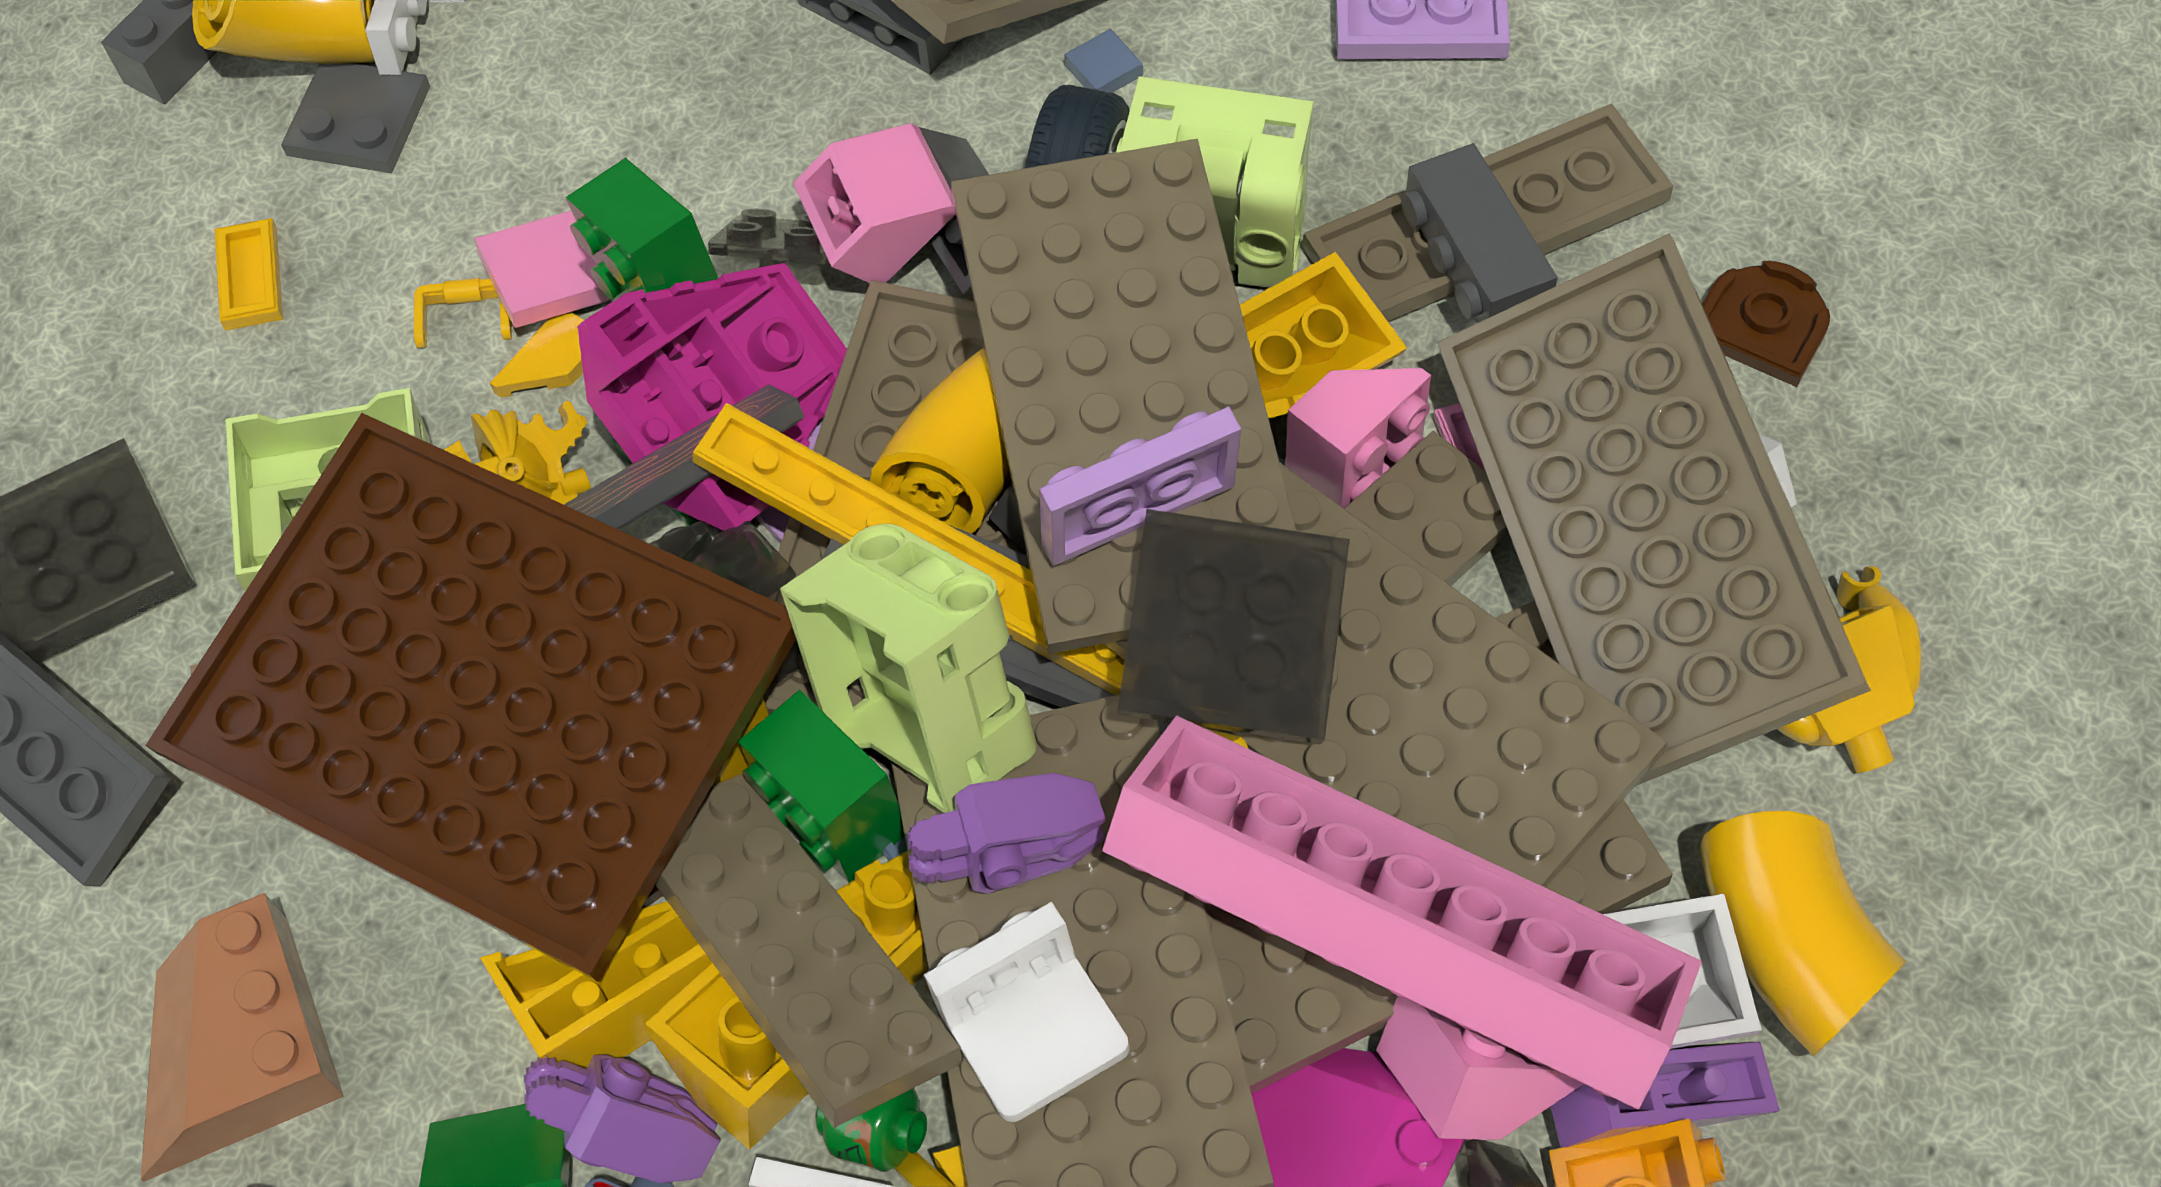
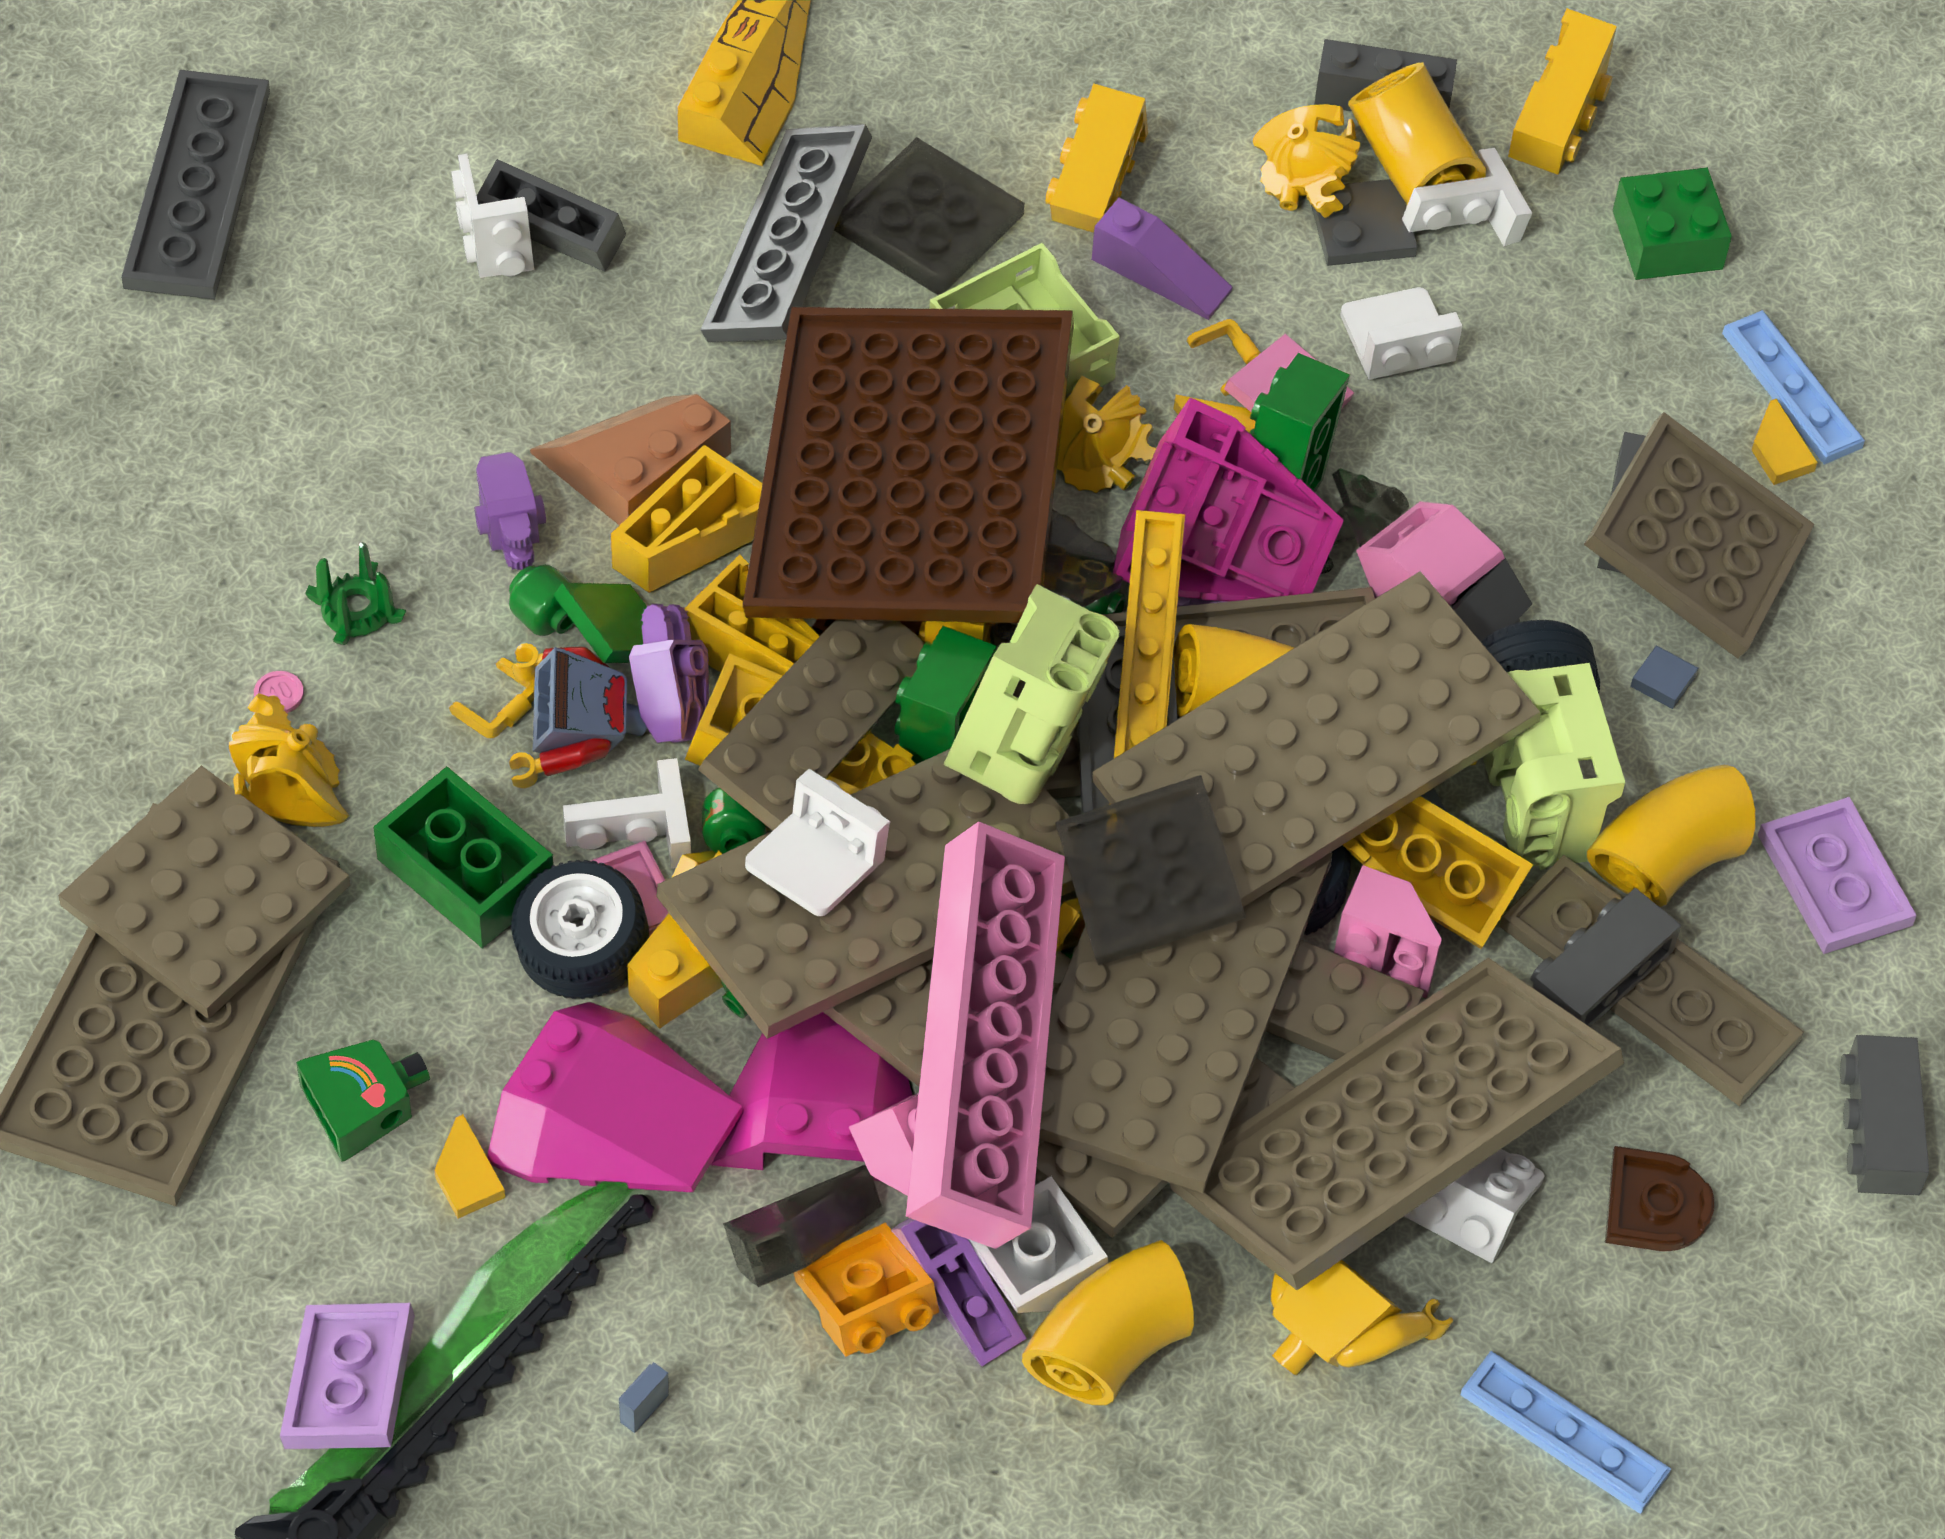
camera: 60 degrees right, 5 degrees down
(114, 332) = (1097, 156): none -> yellow wedge
(244, 131) = (1307, 160): none -> yellow helmet
(248, 274) = (1203, 213): yellow tile -> none
(287, 330) = (1156, 258): none -> medium lavender slope
(385, 1002) = (687, 521): none -> yellow wedge
(531, 133) = (1400, 332): none -> white bracket
(671, 468) = (1120, 507): dark grey tile -> none
(1009, 832) = (939, 790): medium lavender hinge -> none
(1165, 474) = (1195, 747): lavender plate -> none
(1353, 134) = (1676, 833): none -> yellow brick
(1736, 71) = (1885, 1115): none -> dark grey brick
(2033, 513) = (1565, 1432): none -> light blue tile

